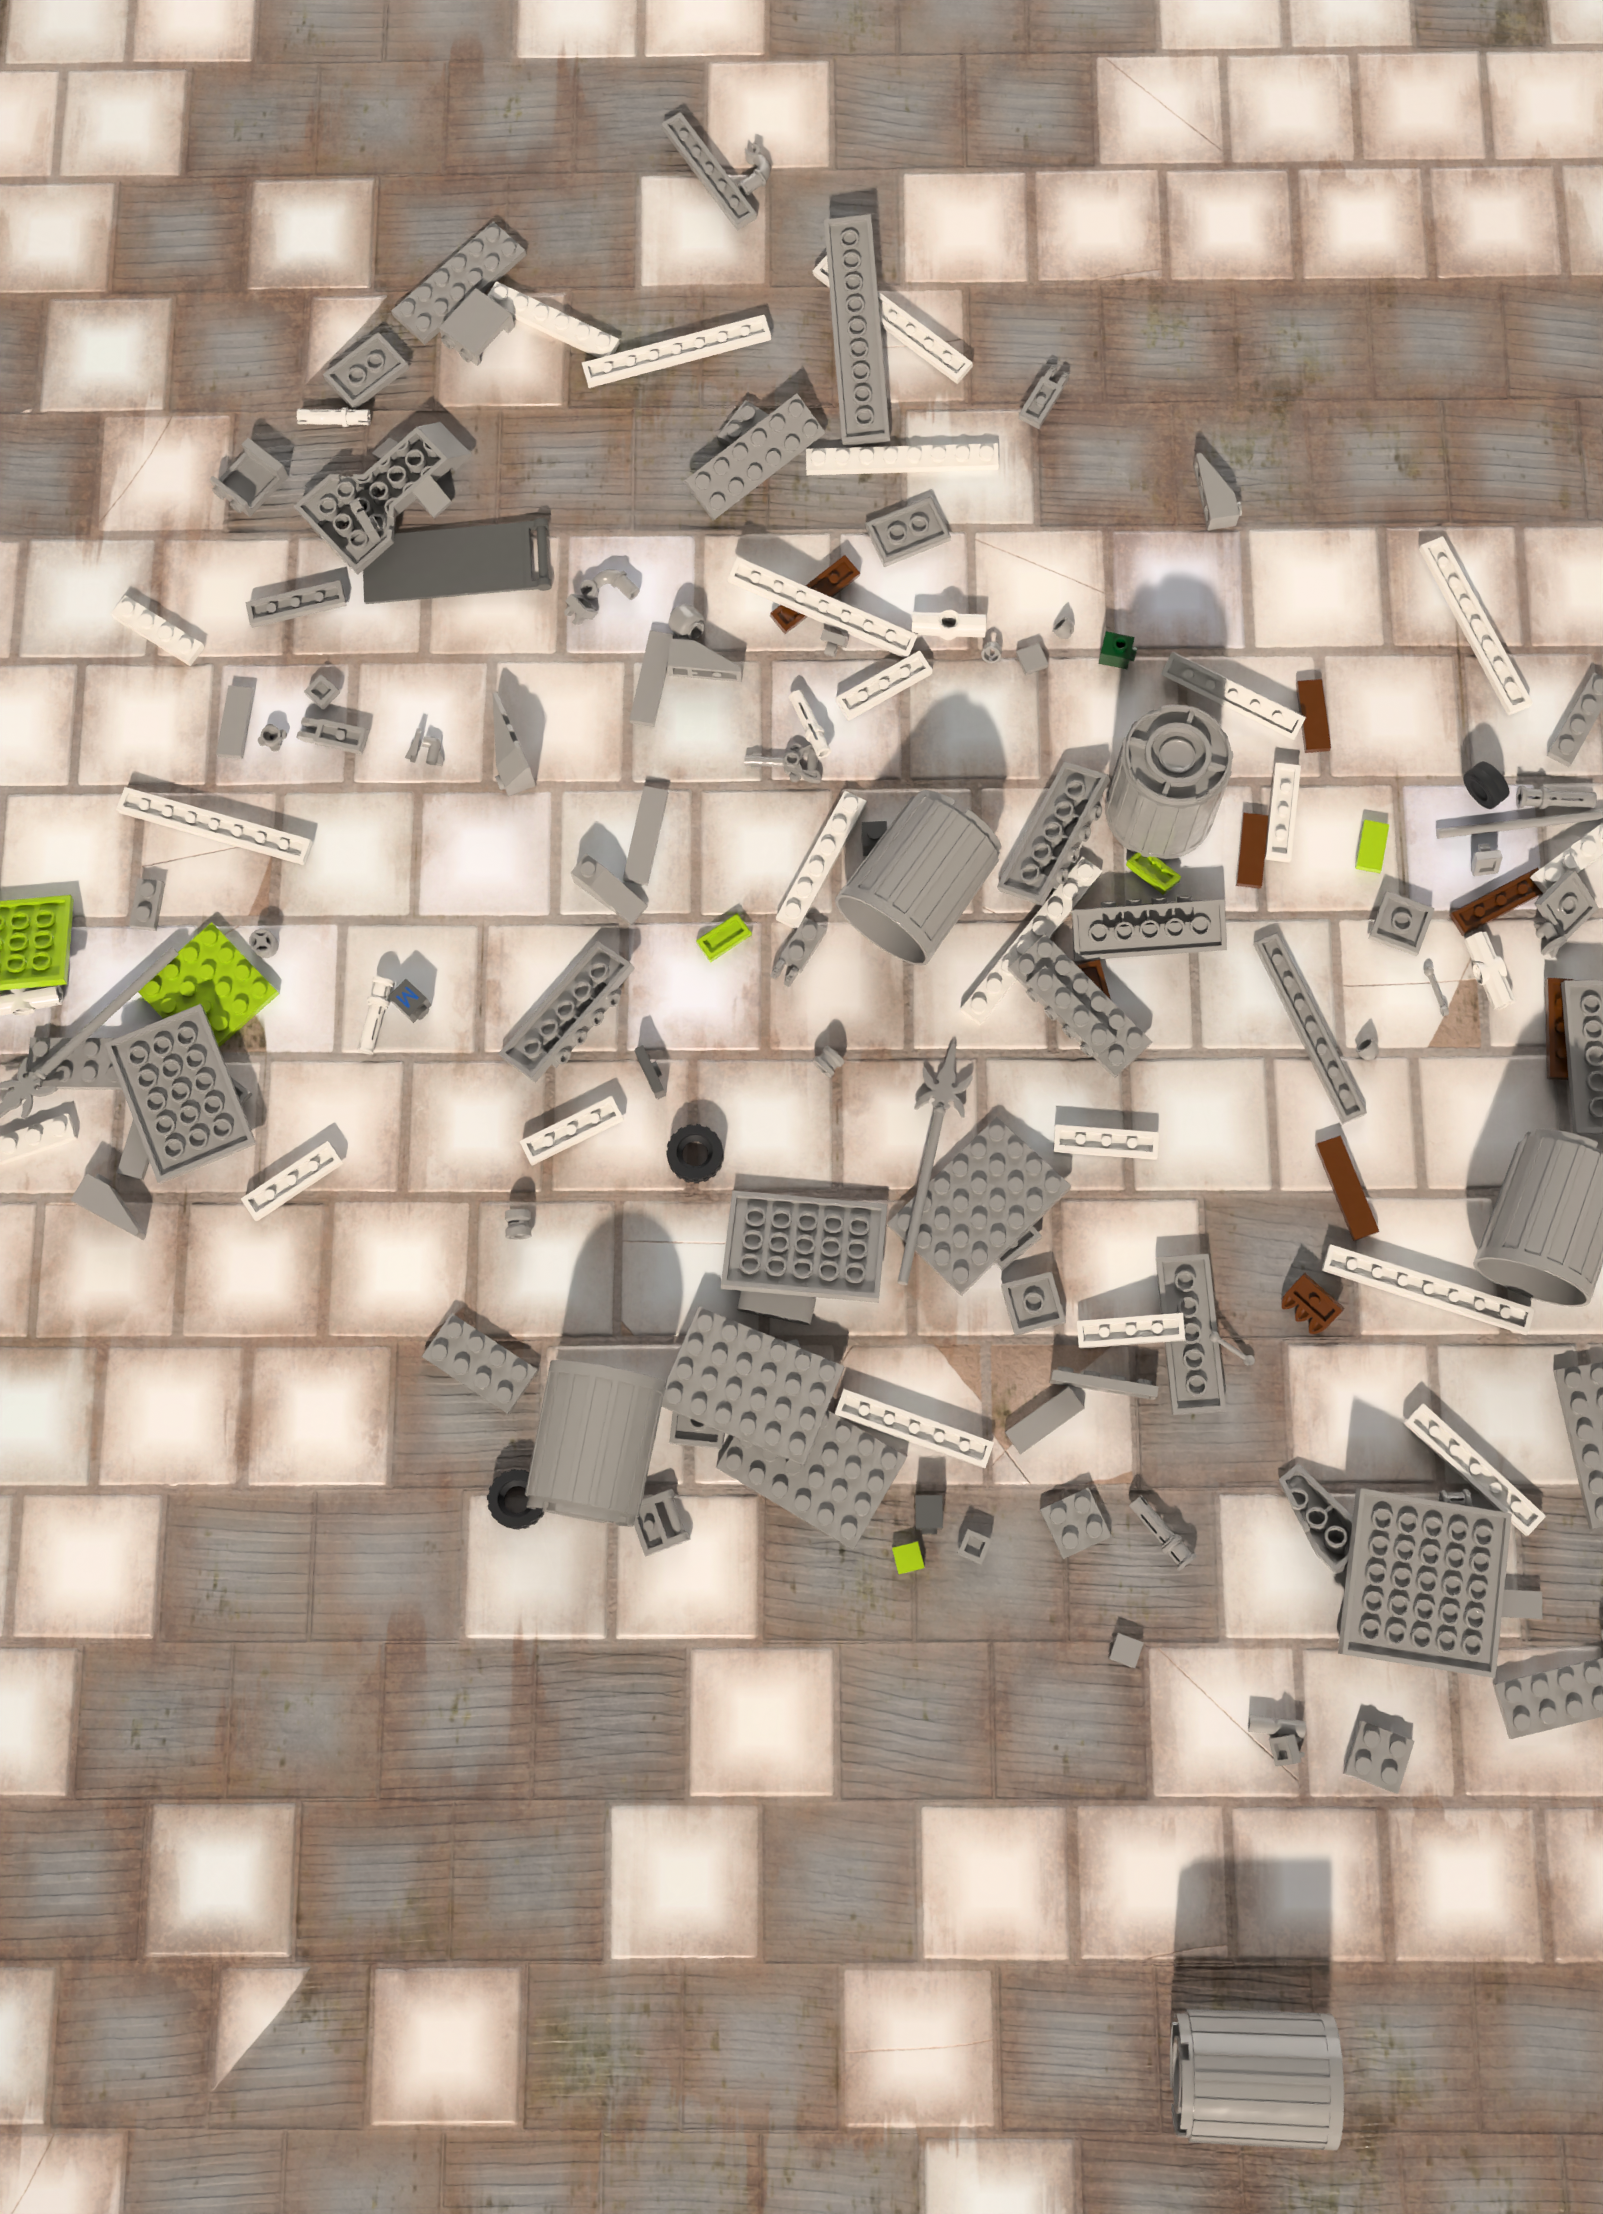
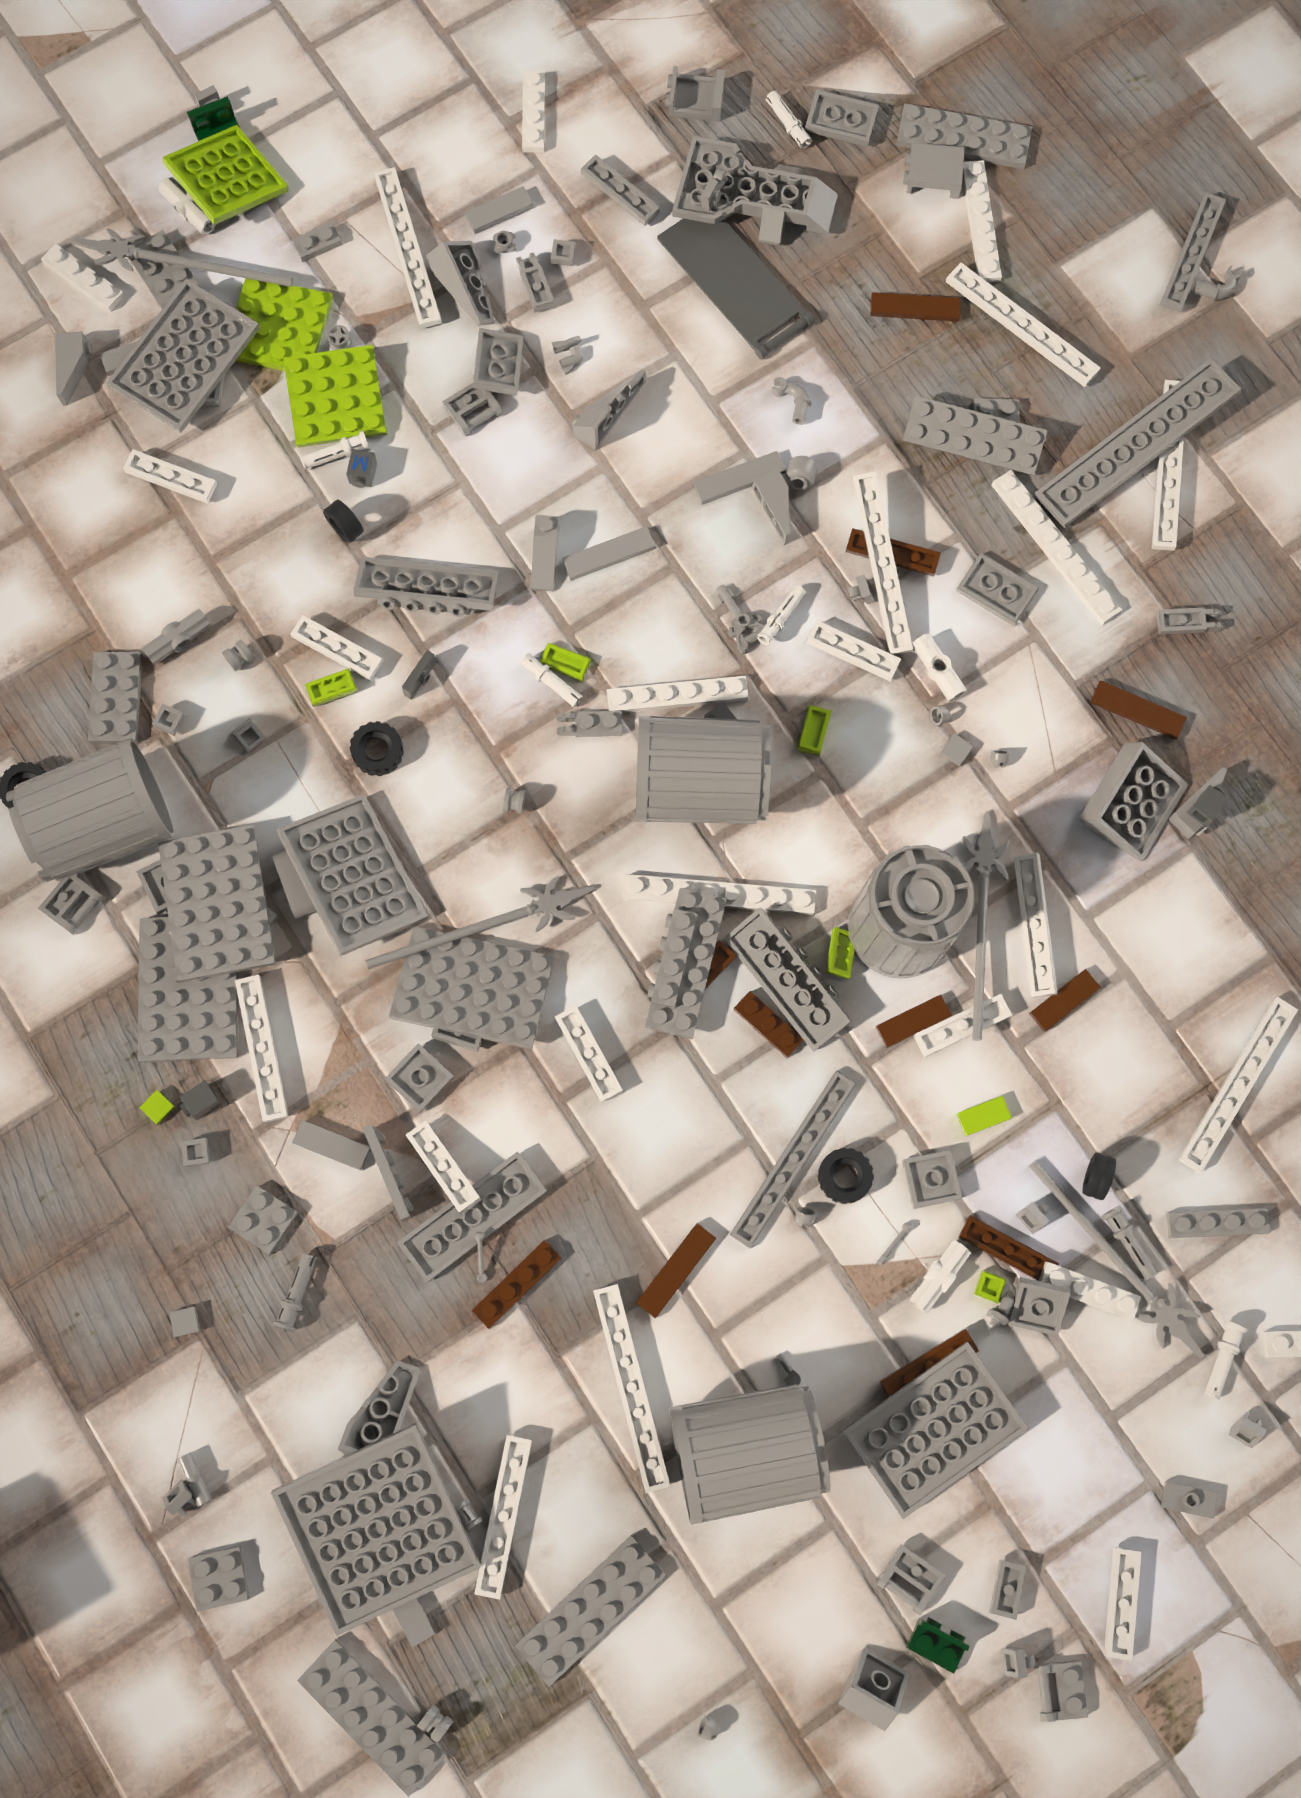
camera: 50 degrees right, 0 degrees up
(270, 795) = (458, 269): none -> light grey wedge
(319, 981) = (334, 395): none -> lime plate
(392, 815) = (497, 361): none -> light grey plate
(409, 866) = (468, 401): none -> light grey plate
(453, 1047) = (343, 521): none -> black tyre
(460, 1270) = (176, 637): none -> light grey piece
(537, 1326) = (168, 719): none -> light grey plate
(581, 607) = (759, 389): light grey tile -> none
(594, 428) = (915, 306): none -> reddish brown tile
(600, 1262) = (248, 735): none -> light grey slope
(607, 1159) = (331, 687): none -> lime plate
(724, 962) = (543, 674): none -> white pin
(933, 765) = (814, 730): none -> lime tile
(1055, 834) = (816, 857): light grey plate -> none
(1095, 489) = (1138, 710): none -> reddish brown tile
(1117, 650) = (1009, 810): dark green brick -> none
(1147, 699) = (984, 859): none -> light grey piece
(1174, 545) = (1133, 800): none -> light grey slope
(1176, 973) = (768, 1024): none -> reddish brown plate
(1225, 486) = (1208, 805): none -> dark grey brick
(1274, 1333) = (516, 1284): none -> reddish brown plate
(1312, 1302) = (560, 1300): reddish brown plate -> none
(1356, 973) = (863, 1169): none -> black tyre
(1502, 1147) = (793, 1377): none -> dark grey hand
(1522, 936) = (990, 1287): none -> lime tile

